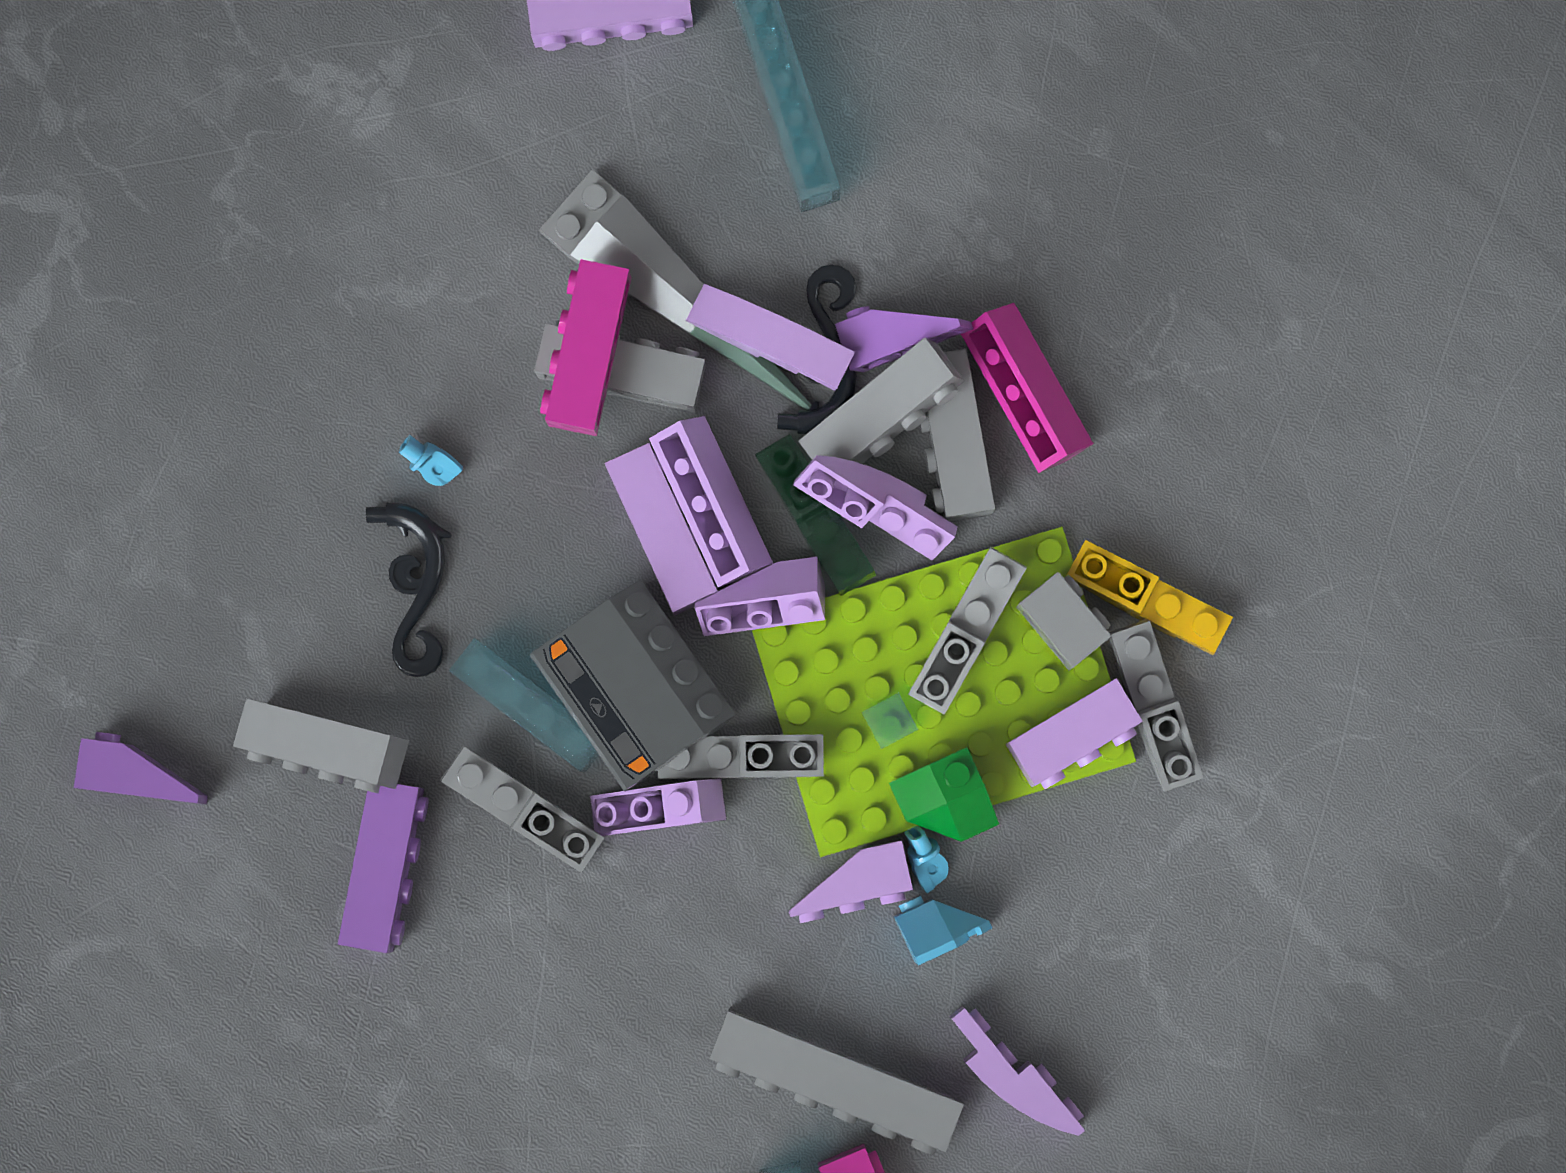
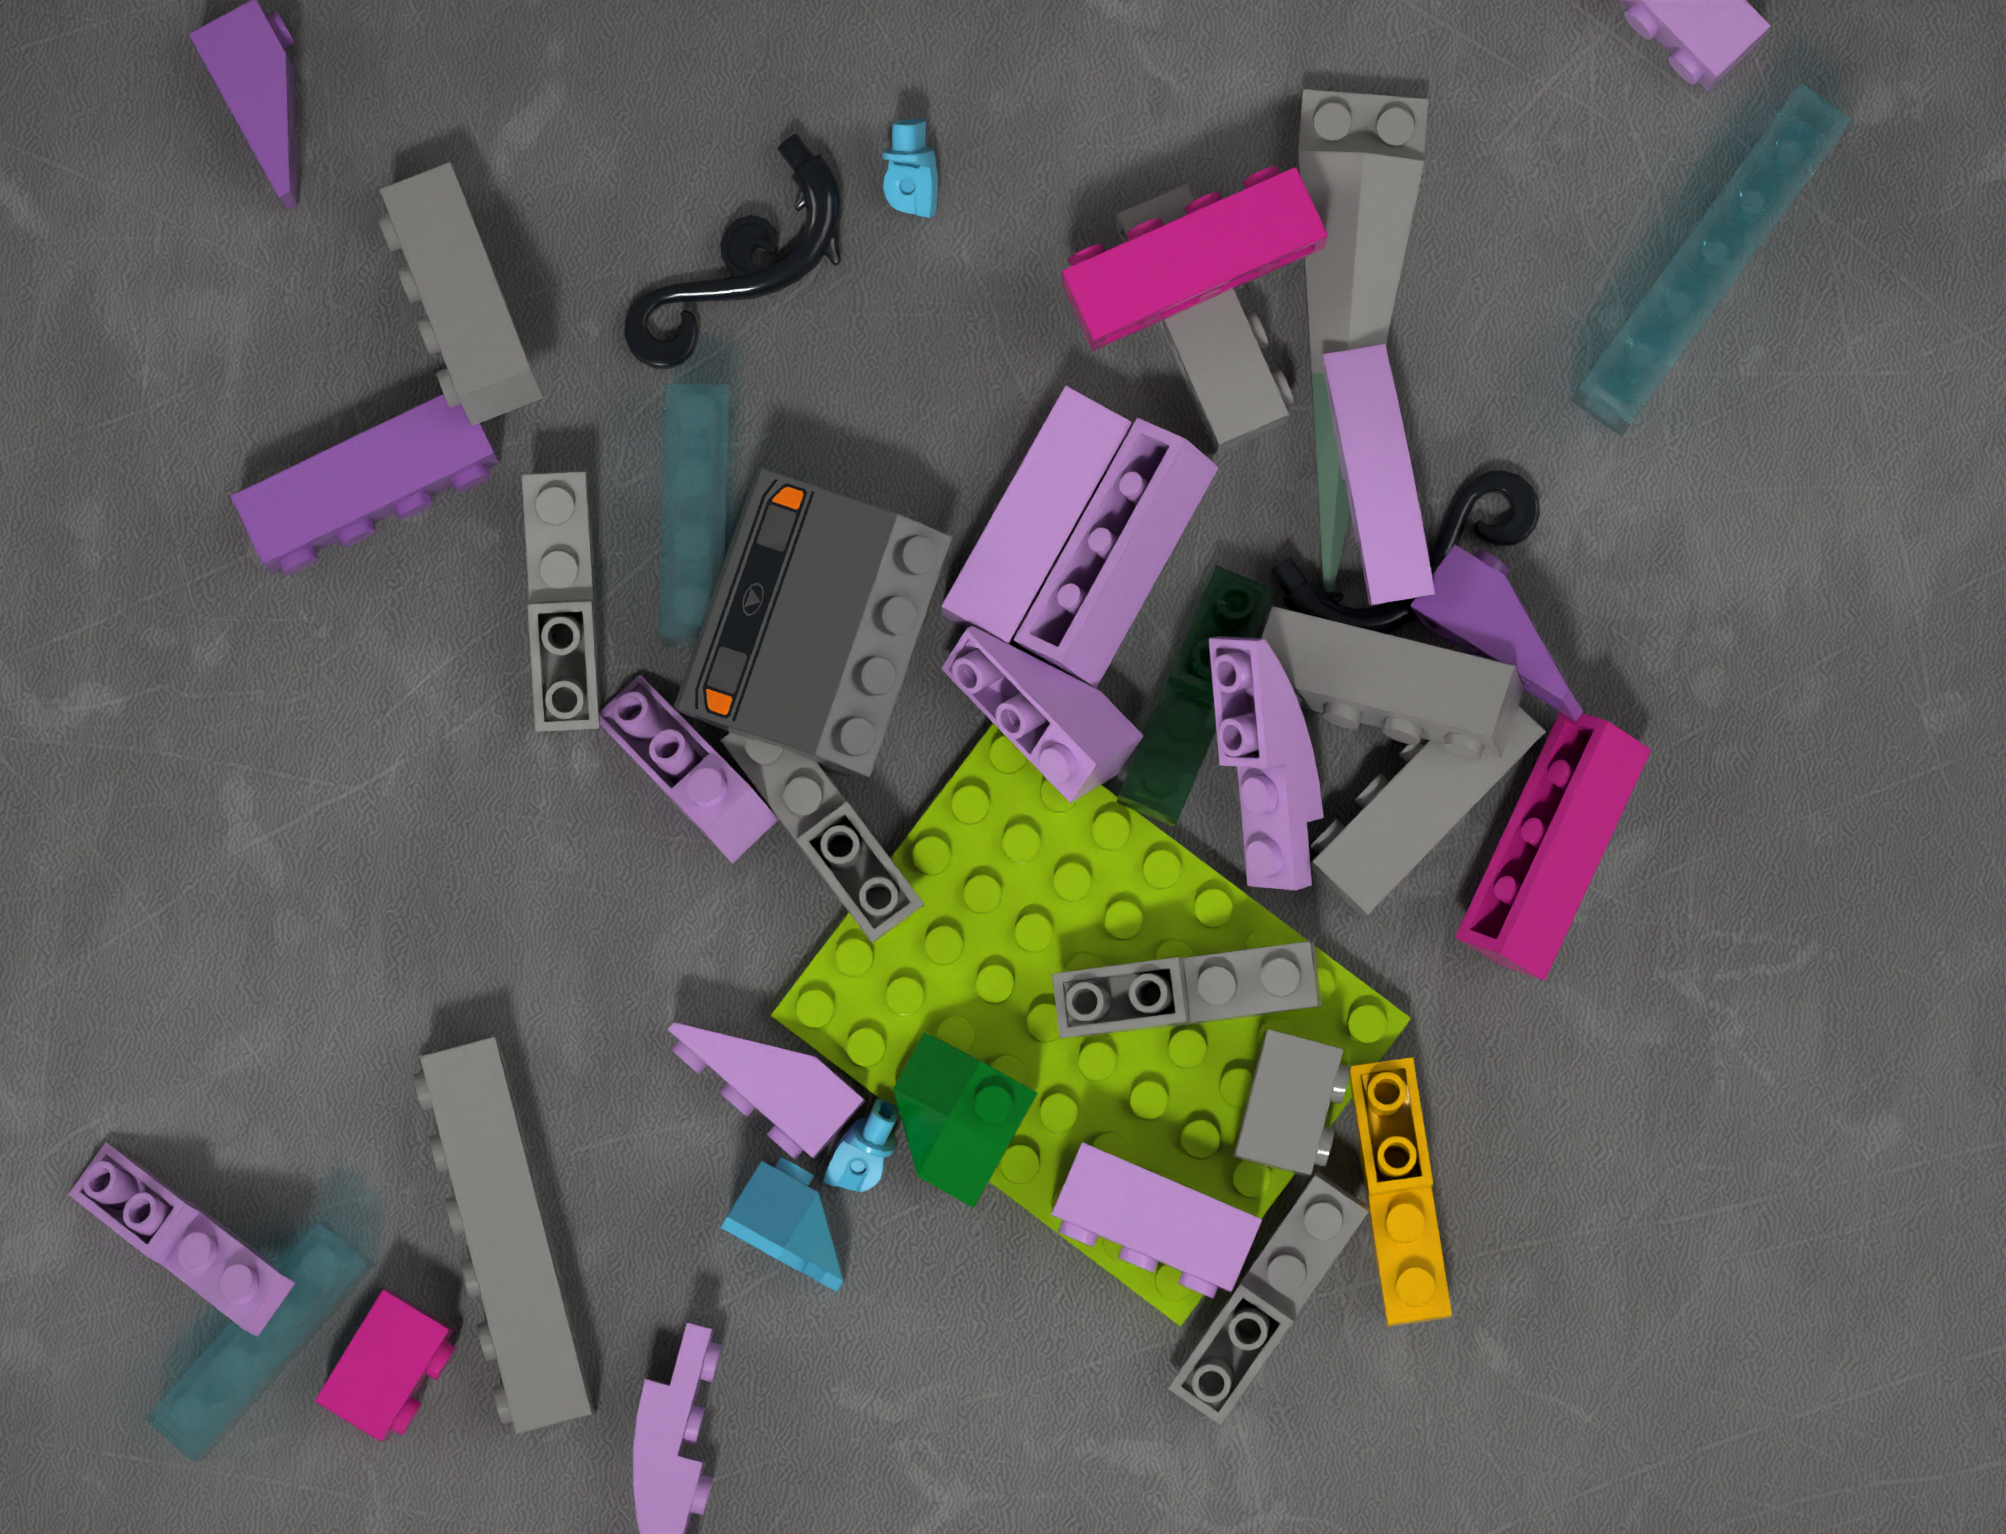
camera: 50 degrees right, 0 degrees up
(889, 721) = (1003, 977): clear light blue tile -> none

